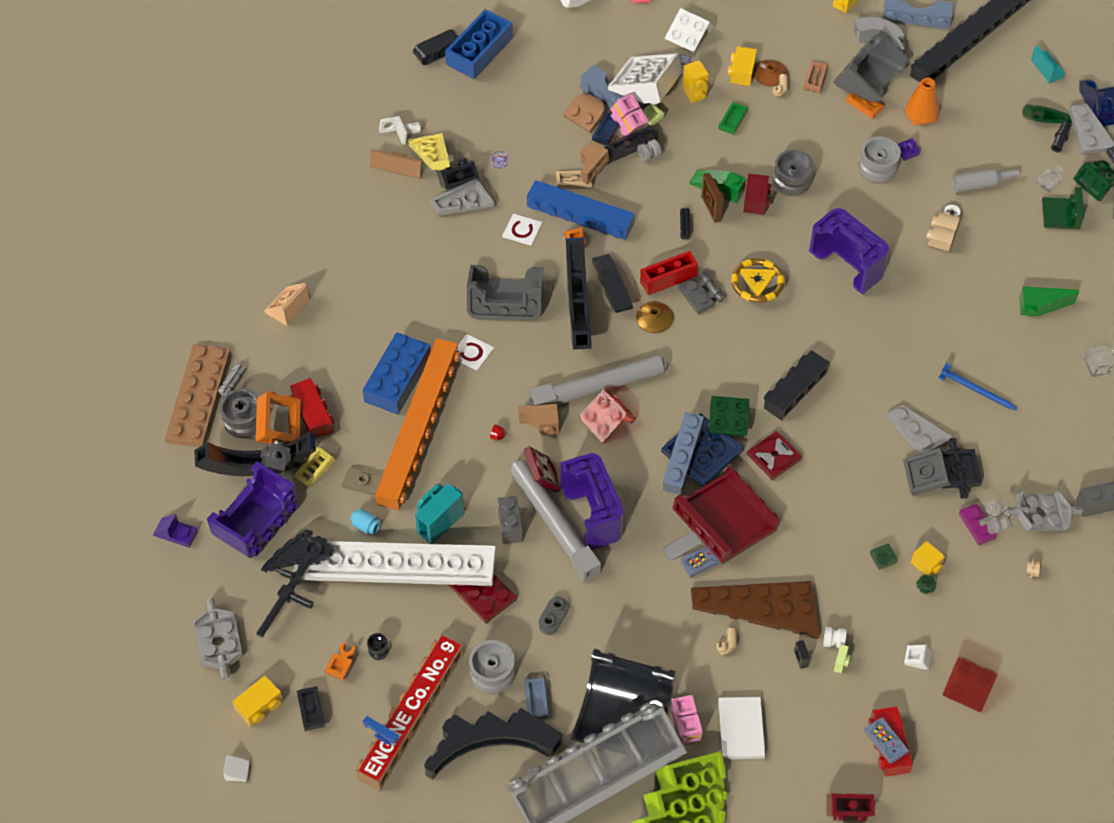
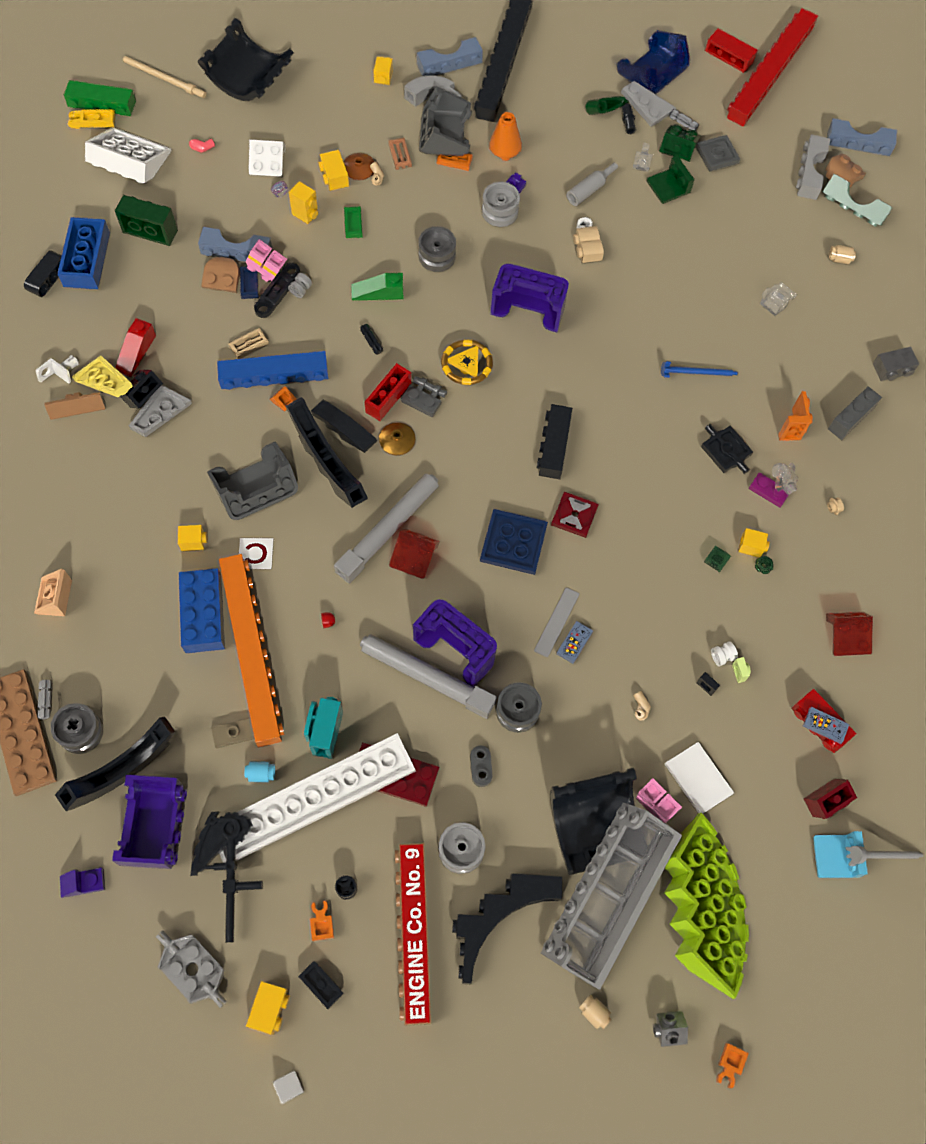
camera: 35 degrees left, 10 degrees up
(263, 431) = (104, 725): orange window -> none
(275, 456) = (140, 759): flat silver brick -> none
(312, 408) = (141, 687): red brick -> none
(314, 457) = (187, 738): light yellow slope -> none
(382, 732) = (409, 976): blue tile -> none
(425, 312) = (191, 537): none -> yellow brick
(475, 138) = (135, 346): none -> red slope
(499, 159) = (169, 356): clear tile -> none
(509, 519) = (390, 697): flat silver brick -> none
(522, 229) = (230, 413): white sticker -> none
(536, 697) = (514, 852): sand blue tile -> none
(541, 417) = (359, 584): medium nougat arch -> none
(542, 469) = (391, 634): dark red piece -> none
(548, 38) = (146, 220): none -> dark green brick
(594, 159) = (257, 315): medium nougat arch -> none
(614, 583) = (530, 707): none -> dark grey wheel
(647, 77) = (259, 217): white slope -> none
(653, 114) = (283, 248): yellowish green plate -> none
(682, 453) = (506, 562): sand blue arch -> none
(712, 197) = (383, 303): reddish brown plate -> none
(727, 515) = (571, 591): dark red panel -> none
(729, 416) = (519, 499): dark green bracket -> none
(756, 194) = (418, 283): dark red brick -> none
(768, 604) = (654, 652): reddish brown wing -> none
(917, 431) = (674, 432): light grey wing -> none
(918, 656) = (795, 632): white slope -> none
(926, 472) = (706, 465): dark grey plate -> none
(1038, 478) = (797, 424): none -> orange bracket
(1041, 300) = (700, 269): green slope -> none
(1046, 65) = (579, 61): teal panel -> none
(1054, 507) = (821, 446): light grey plate -> none

